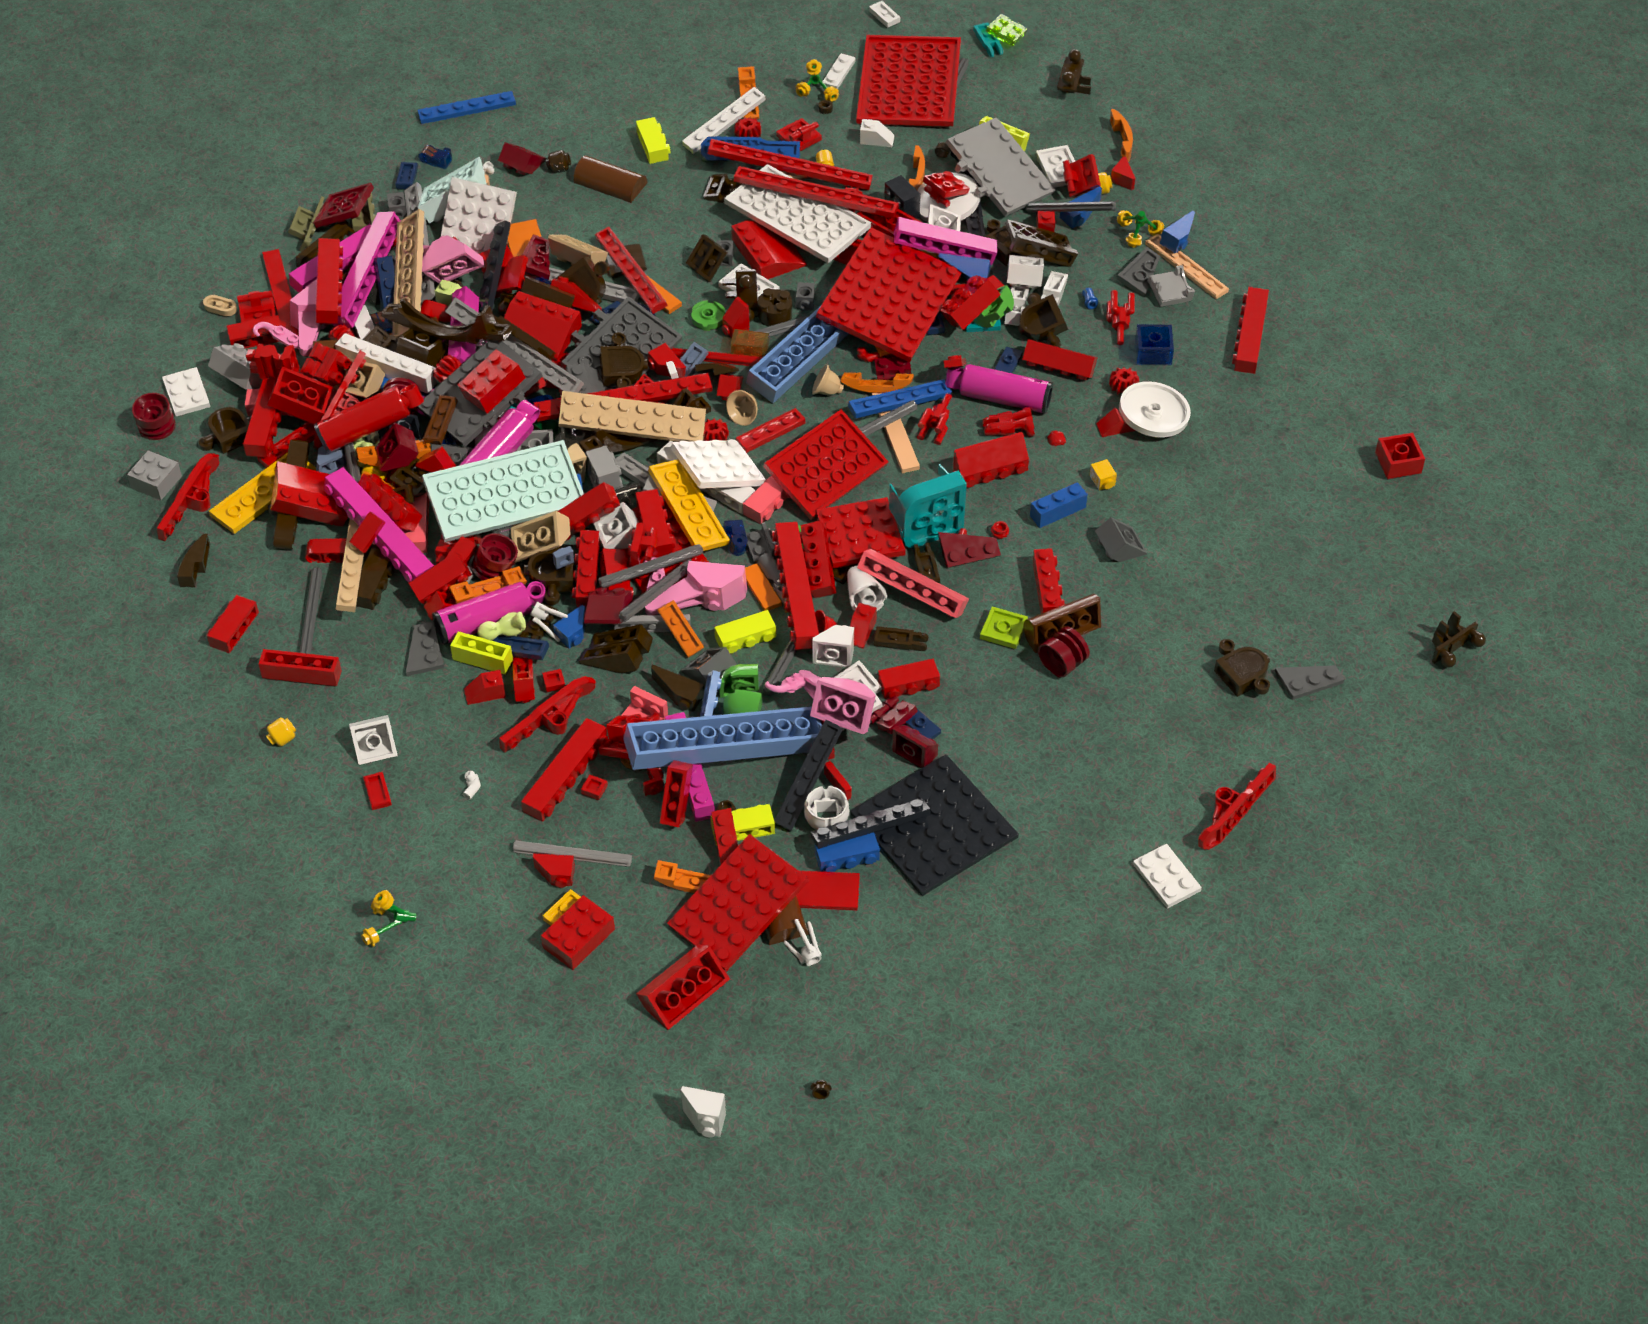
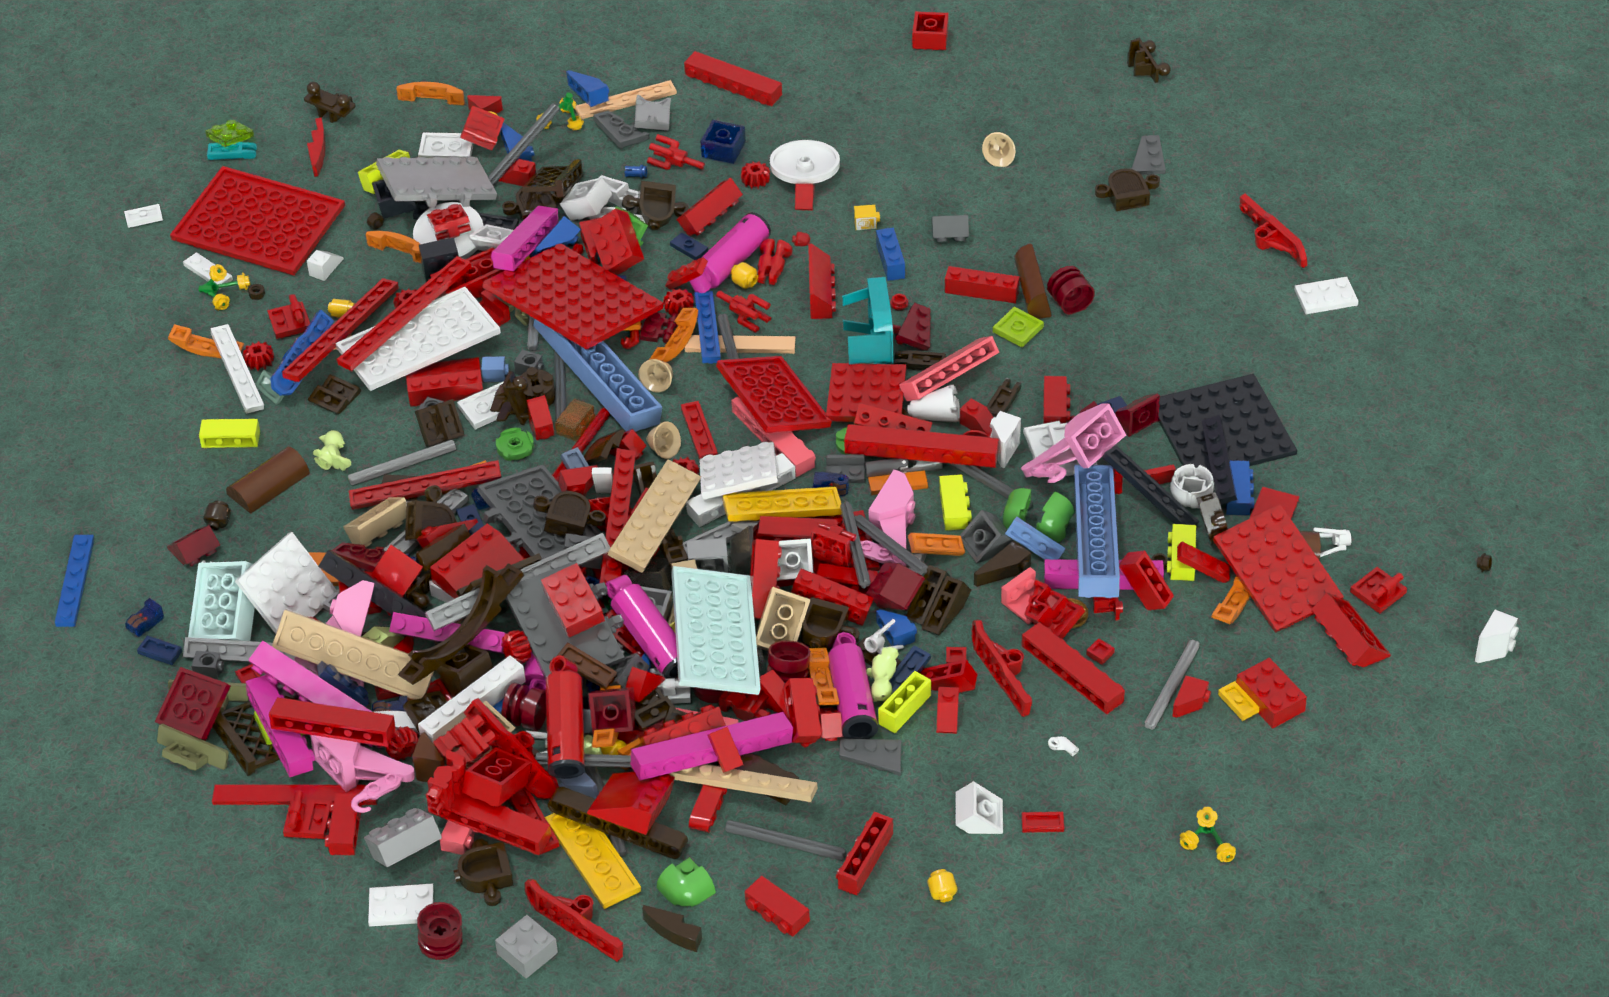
camera: 70 degrees left, 5 degrees down
(221, 306) = (279, 853): tan plate -> none
(244, 559) = (685, 884): none -> bright green brick
(563, 557) = (823, 601): sand blue plate -> none
(649, 205) = (330, 453): none -> yellowish green animal
(662, 253) = (401, 462): none -> light grey axle
(749, 1000) = (1379, 589): none -> red plate
(786, 831) = (1212, 515): none -> piece
(790, 274) = (494, 369): none -> medium blue brick
(927, 371) = (677, 300): none -> red gear
(980, 407) = (744, 275): none -> yellow head
(1014, 88) = (317, 147): none -> red slope
(1249, 550) = (998, 149): none -> tan hat

